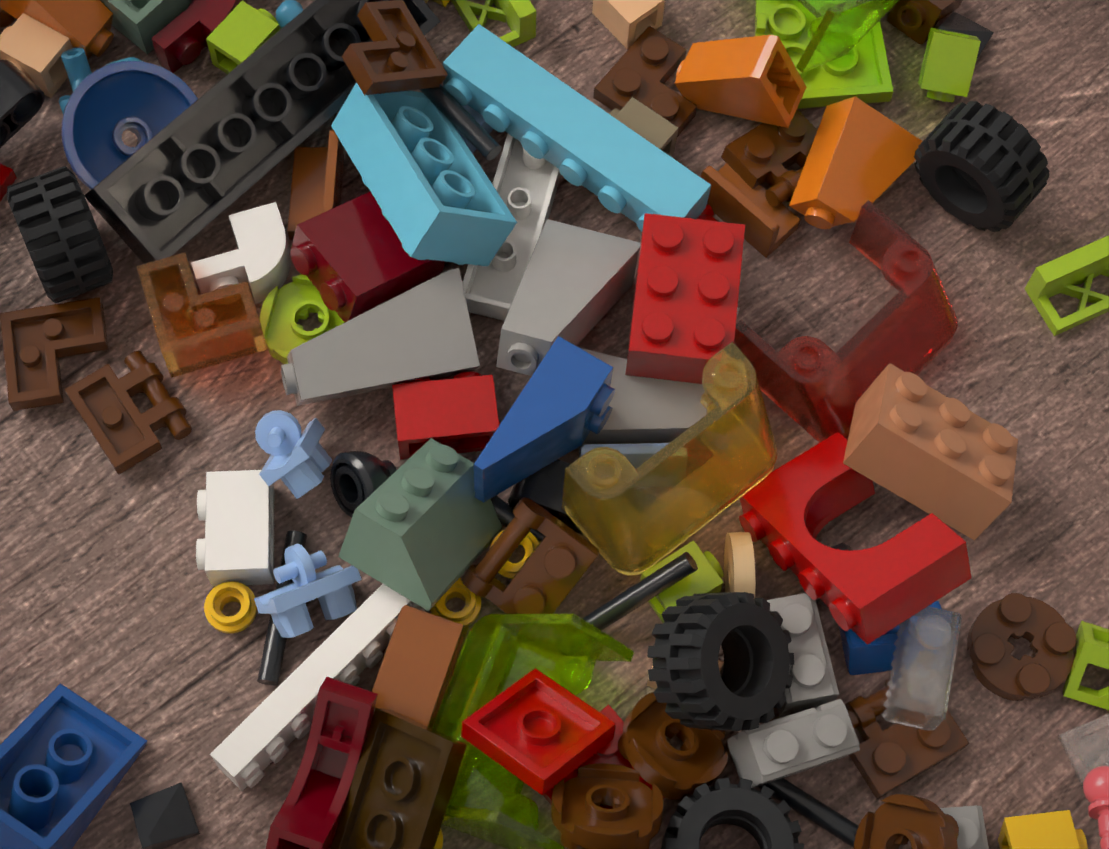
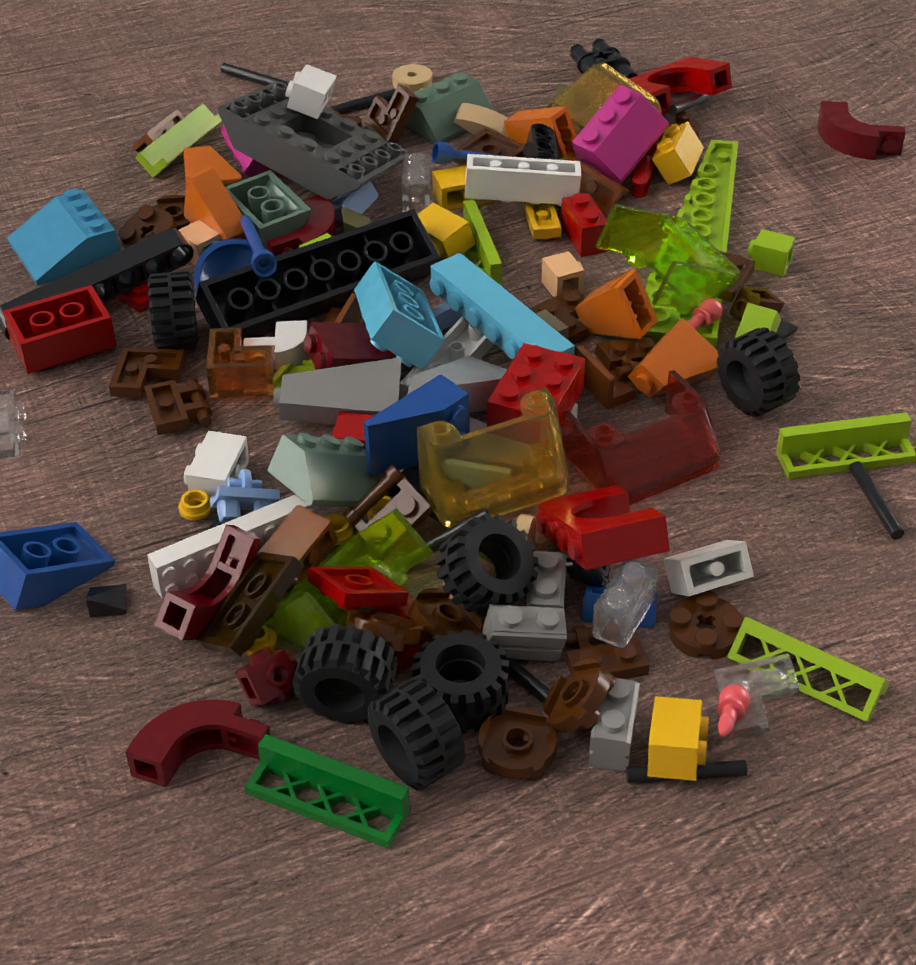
camera: 20 degrees right, 25 degrees down
(185, 129) = (262, 260): none -> blue piece
(294, 456) = (263, 429): light blue hips -> none
(398, 55) = (401, 253): reddish brown plate -> none
(463, 121) = (428, 292): black bar -> none
(871, 50) = (707, 312): none -> coral bar
(932, 451) = (659, 481): nougat brick -> none
(1013, 555) = (708, 567): none -> white brick

